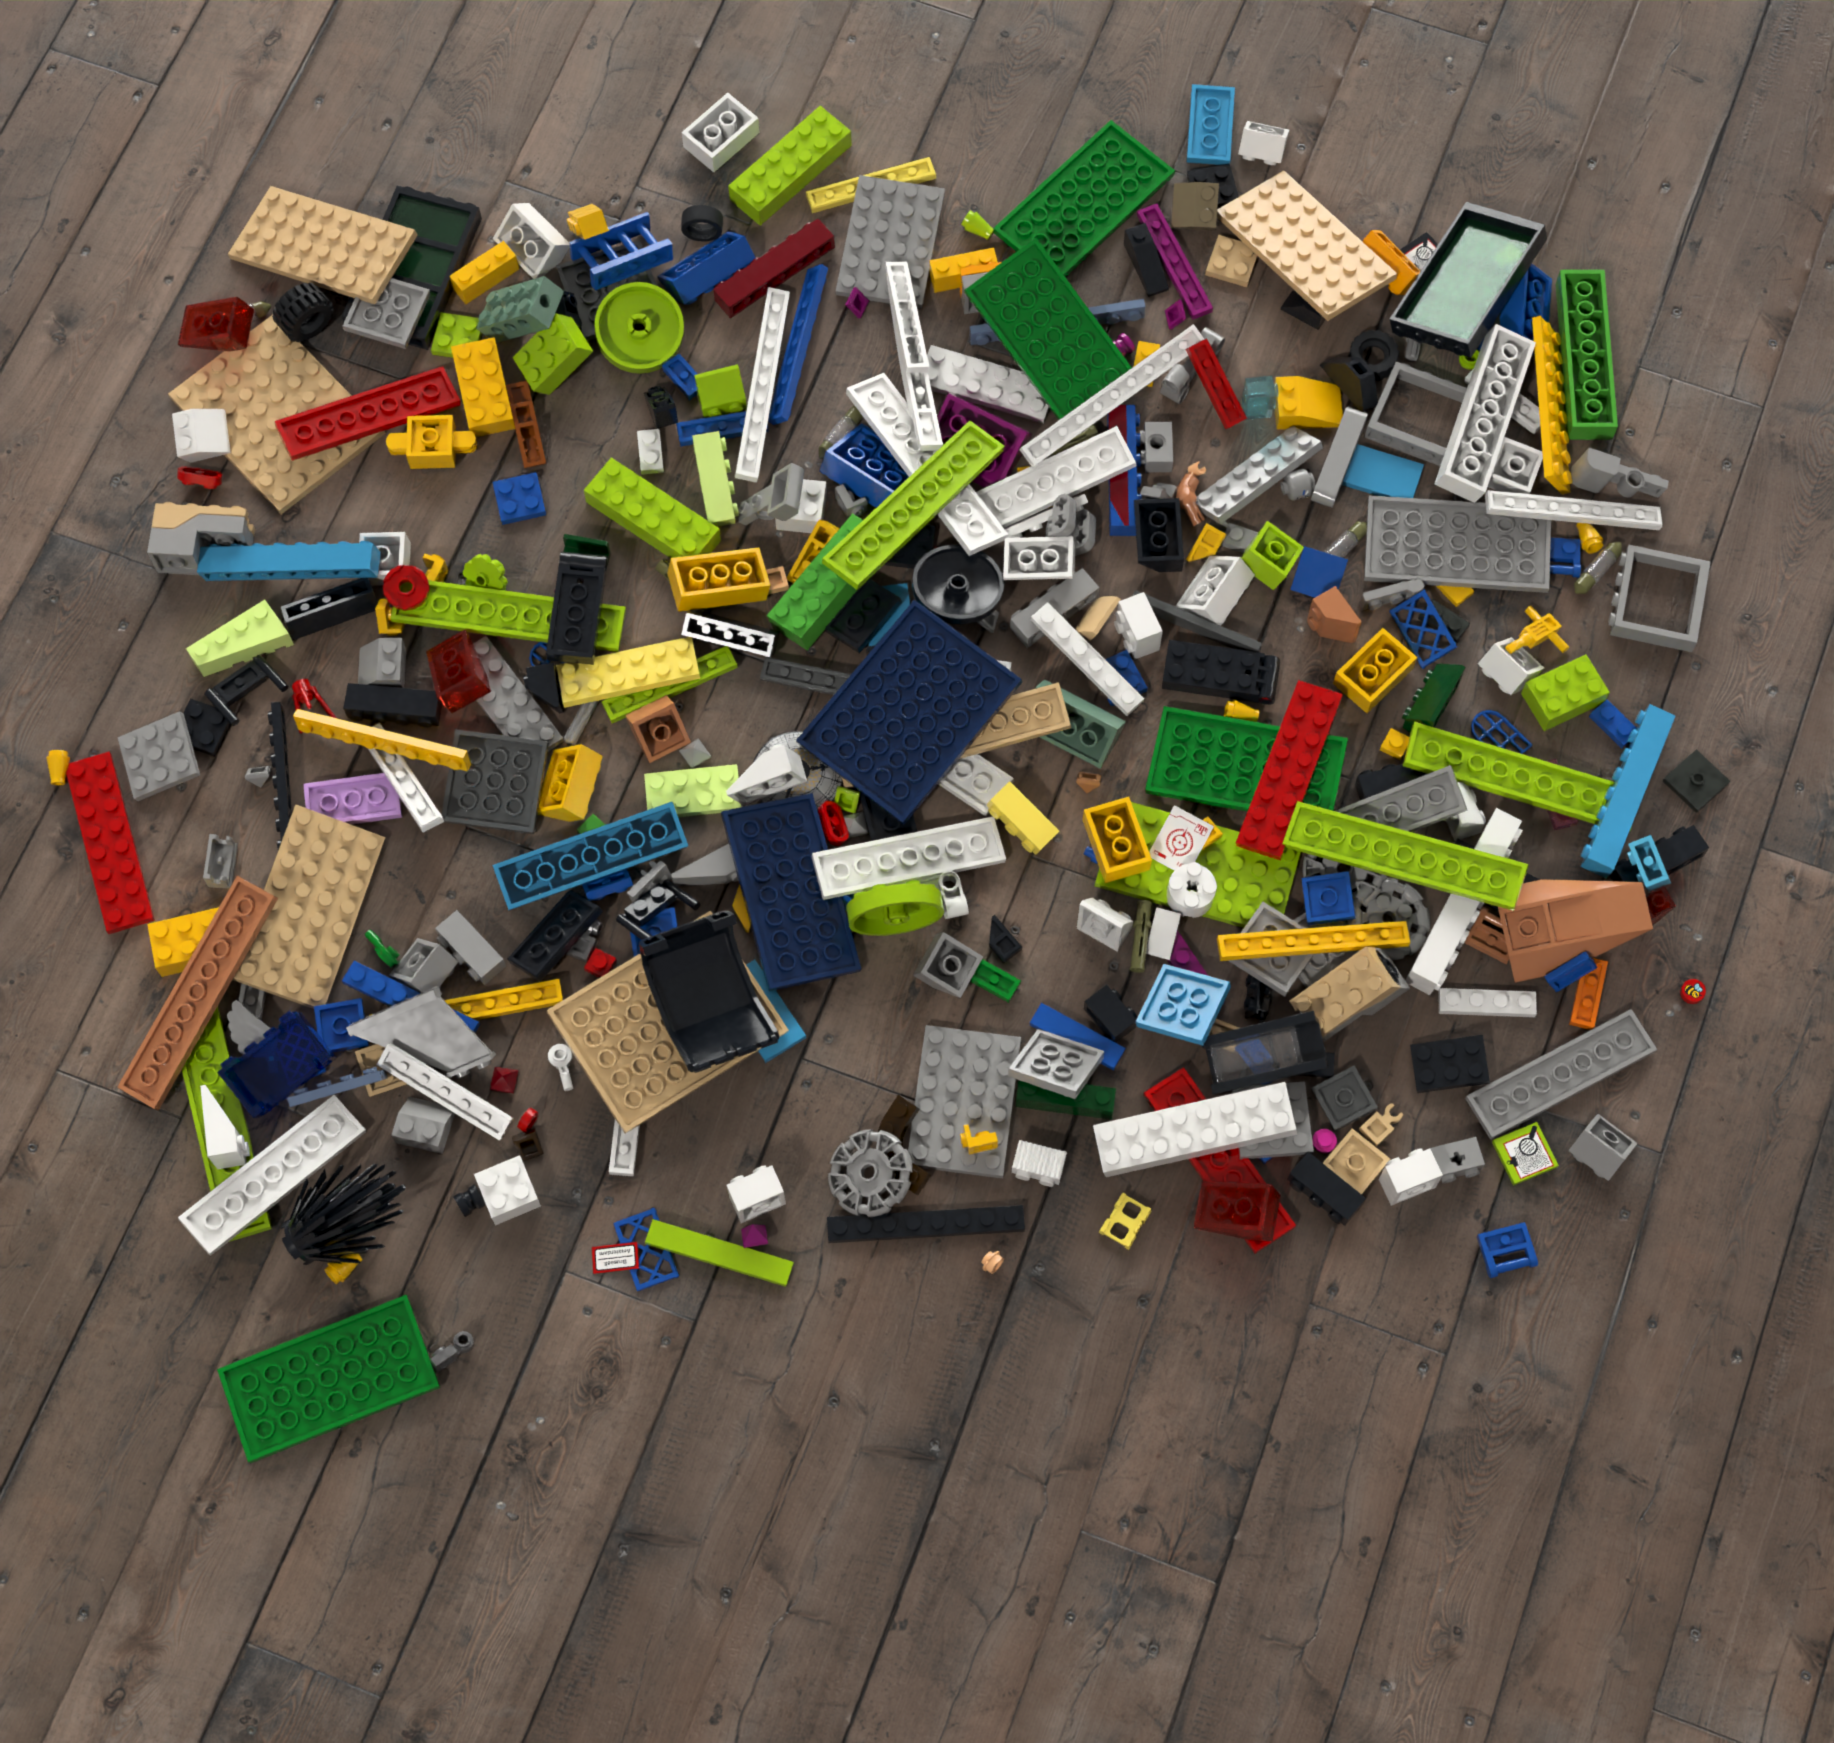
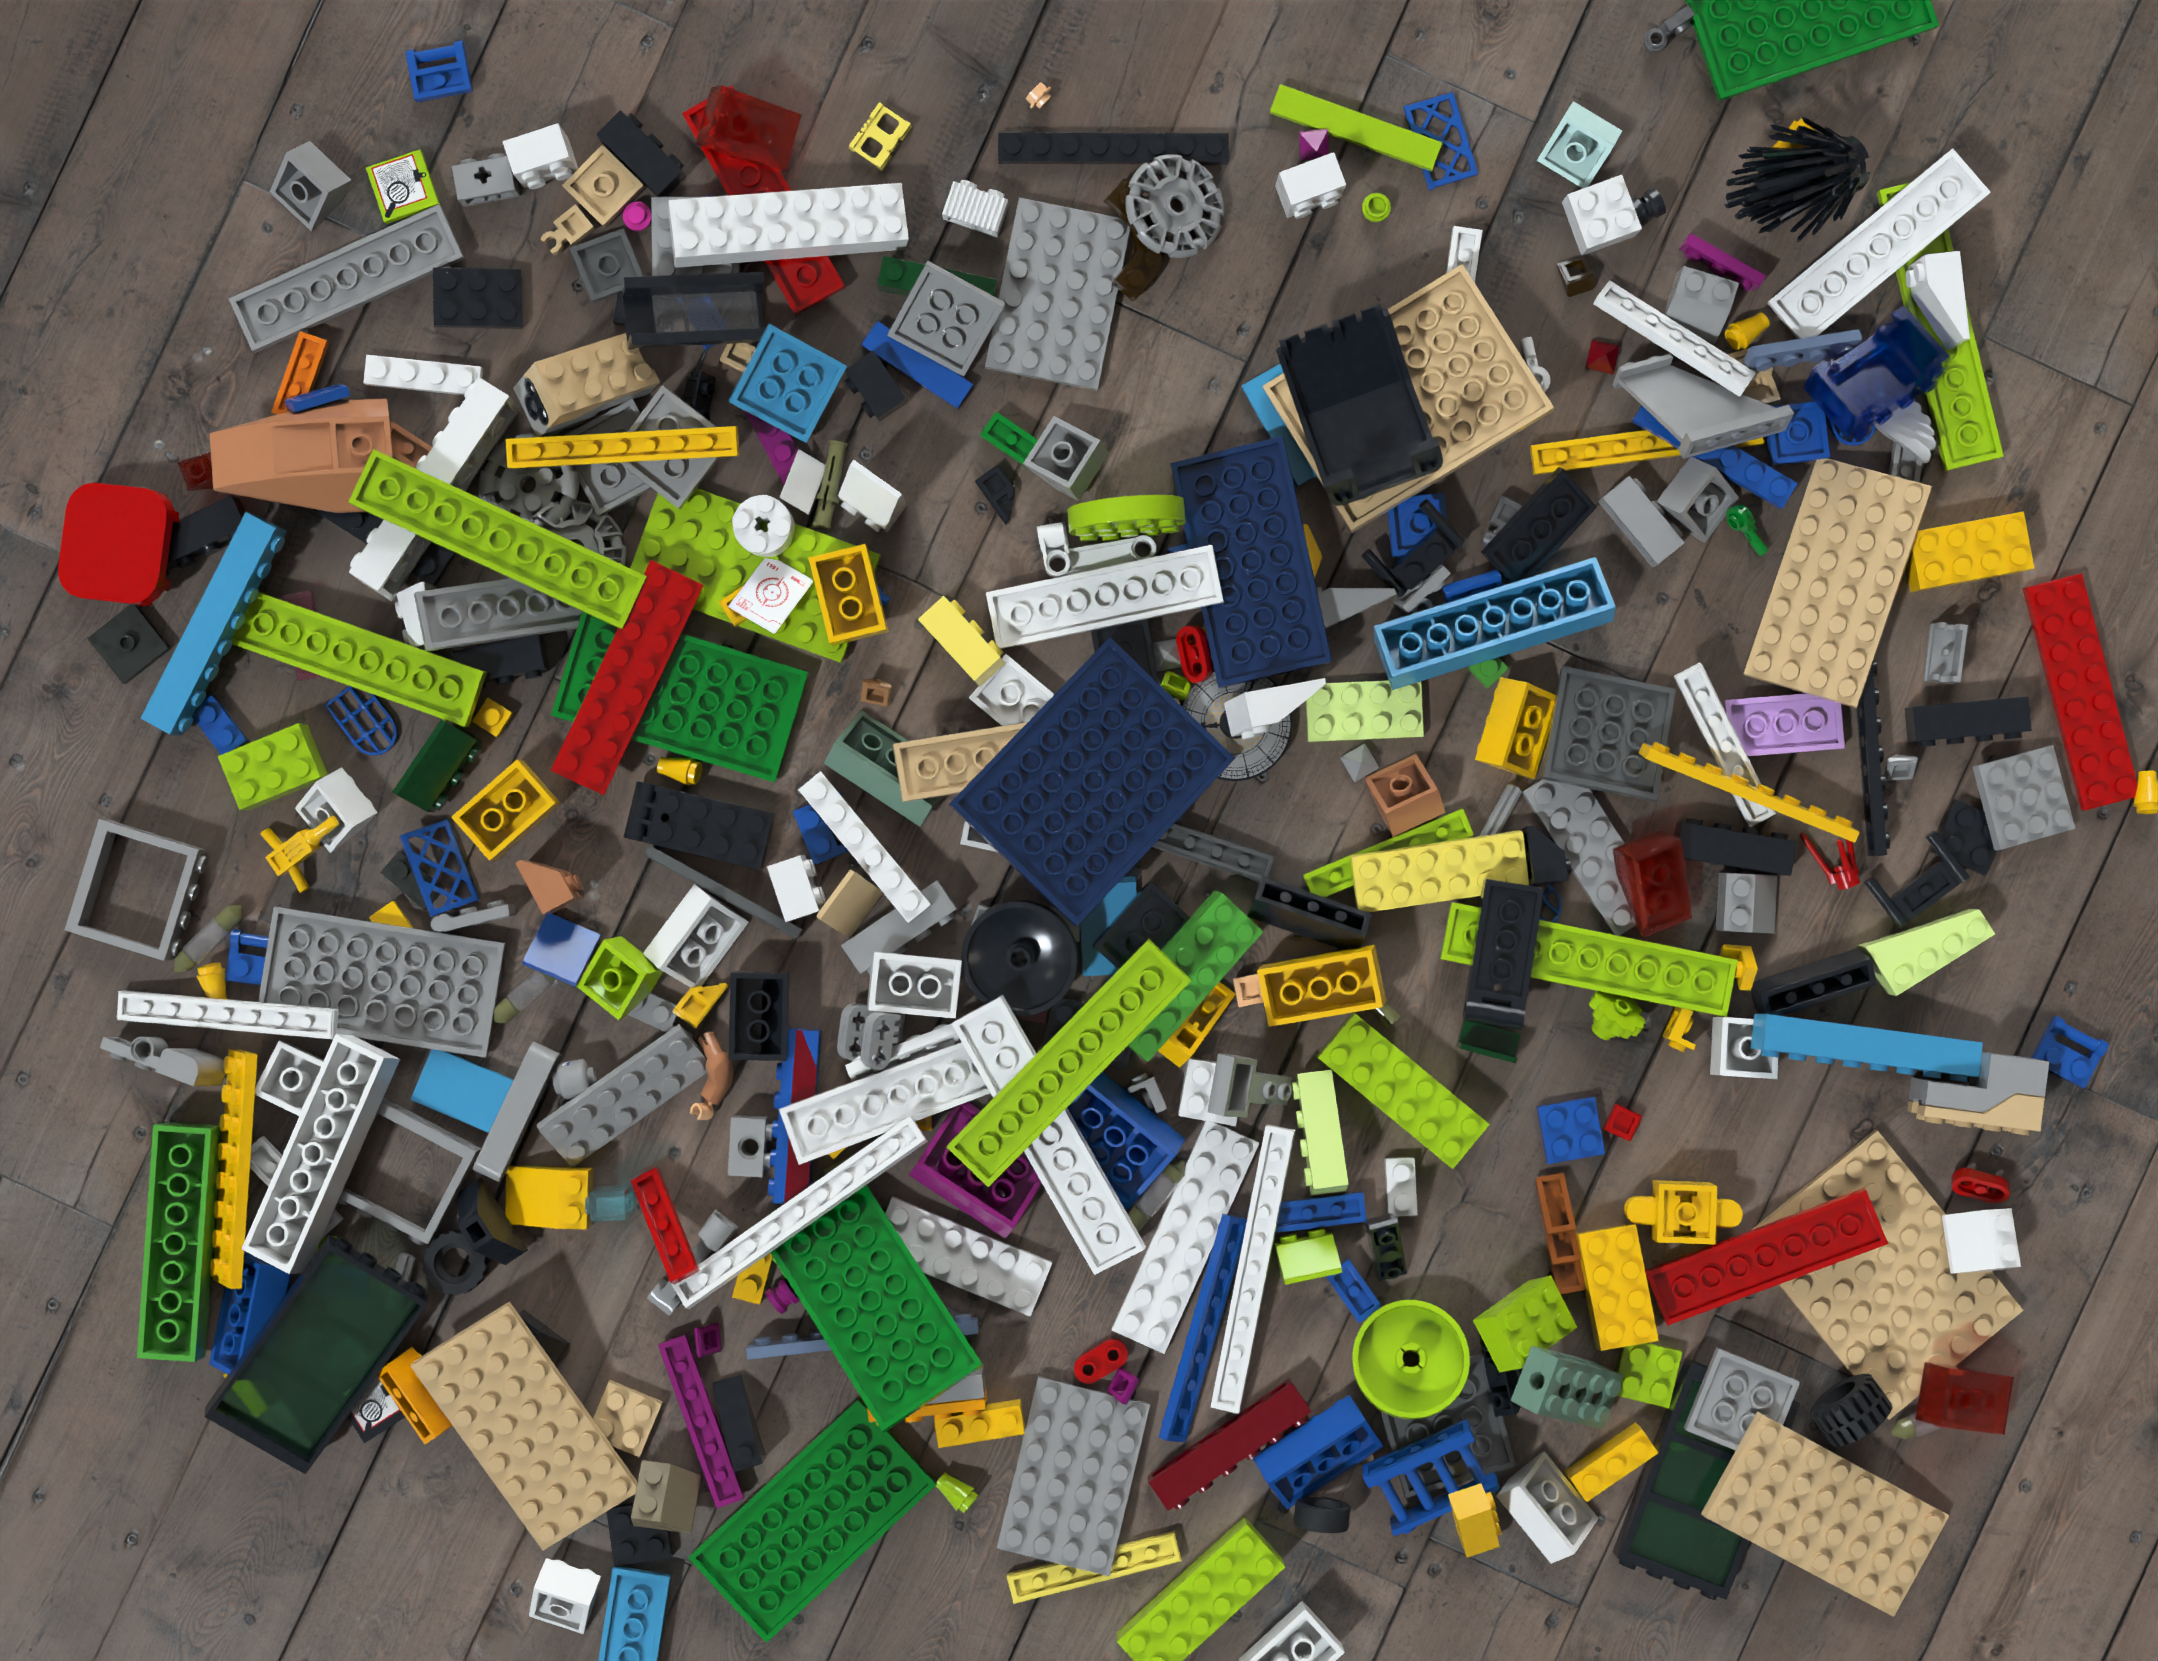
camera: 175 degrees left, 20 degrees up
(128, 569) = (2065, 1061): none -> blue plate
(197, 993) = (1971, 473): nougat plate -> none
(202, 811) = (1968, 719): none -> black brick
(383, 1106) = (1745, 331): none -> yellow cone
(405, 1158) = (1721, 263): none -> magenta plate
(411, 599) = (1706, 1009): red tile -> none
(478, 506) = (1622, 1122): none -> red tile
(526, 1249) = (1579, 145): none -> light aqua slope
(528, 1120) = (1575, 300): red tile -> none
(600, 963) = (1484, 494): red plate -> none
(615, 1257) = (1476, 132): sticker -> none
(699, 1188) = (1376, 207): none -> lime plate
(817, 402) = (1185, 1236): none -> white plate
(876, 320) = (1100, 1361): none -> red plate
(912, 356) = (1055, 1291): white slope -> none
(981, 1142) = (1040, 230): yellow bracket -> none
(1159, 491) = (749, 1076): light grey bracket -> none
(1328, 898) = (598, 507): blue plate -> none
(1649, 863) = (201, 517): medium azure brick -> none
(1692, 991) = (175, 373): red tile -> none
(1717, 847) = (116, 544): none -> red tile

